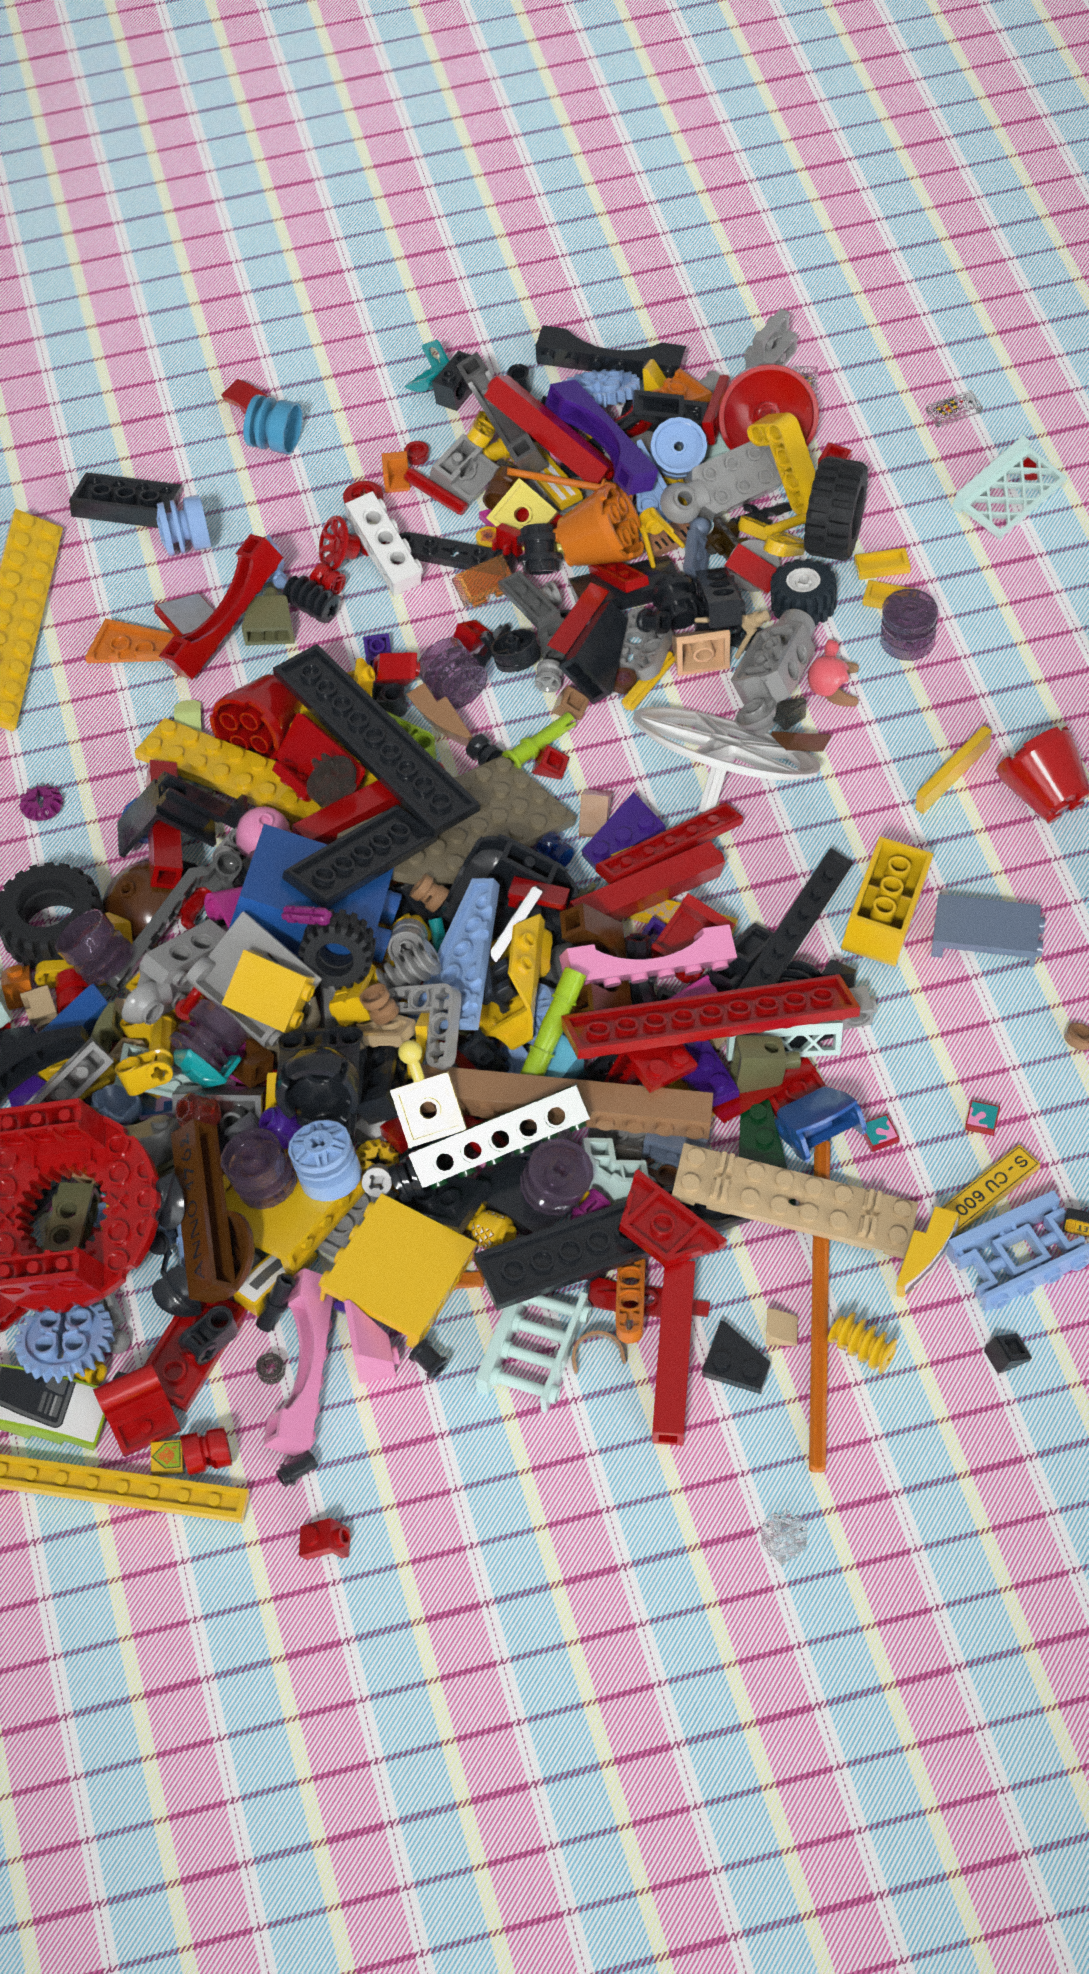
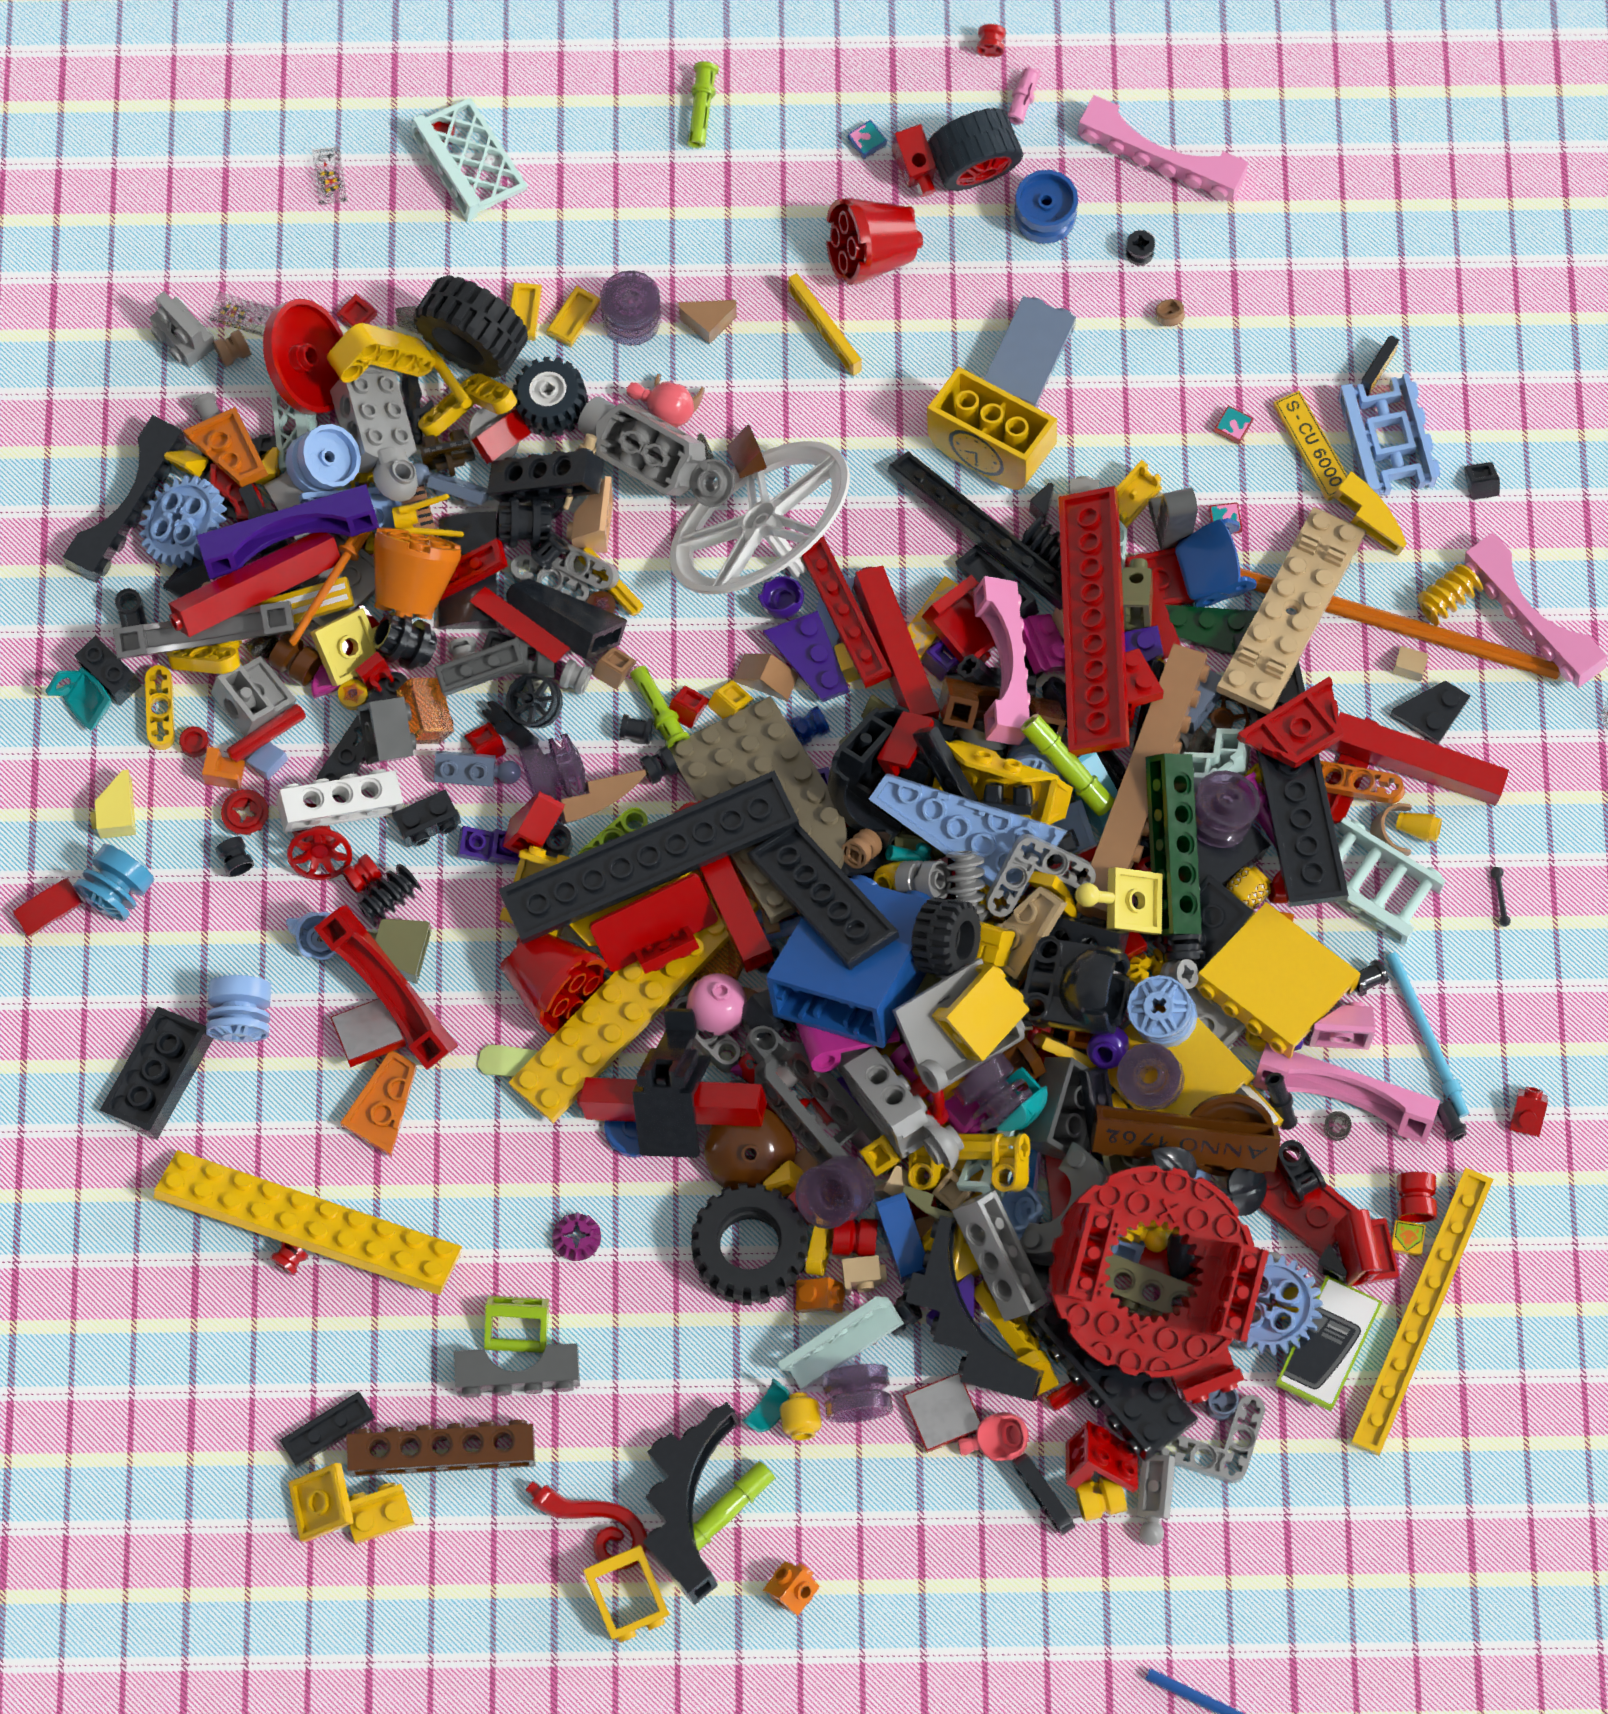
camera: 80 degrees left, 15 degrees up
(198, 1107) = (1079, 1118): clear red head -> none
(306, 915) = (920, 948): magenta axle -> none
(321, 497) = (234, 856): none -> black wheel
(331, 779) = (685, 908): clear smoke plate -> none
(334, 1462) = (1451, 1086): none -> medium azure bar
(343, 417) = (115, 808): none -> light yellow slope
(380, 1006) = (1004, 915): medium nougat wheel -> none
(390, 612) = (427, 818): none -> black bracket
(412, 500) = (267, 760): none -> light blue slope
(441, 620) = (473, 769): none -> sand blue plate
(450, 551) = (386, 730): none -> dark grey brick
(457, 424) = (151, 688): none -> yellow beam
(513, 724) = (636, 729): none -> black bush
(527, 1476) = (1497, 873): none -> black hinge
(566, 791) = (729, 699): none -> yellow slope
(605, 1373) = (1420, 825): none -> yellow cone
(659, 407) = (271, 450): black slope -> none
(671, 800) = (781, 597): none -> dark purple hair
(709, 421) = (264, 407): red tile -> none
(848, 1068) = (1173, 516): none -> dark grey beam
(873, 1046) = (1135, 492): none -> yellow hinge
(907, 1380) = (1572, 652): none -> bright pink arch
(925, 687) = (708, 317): none -> medium nougat slope

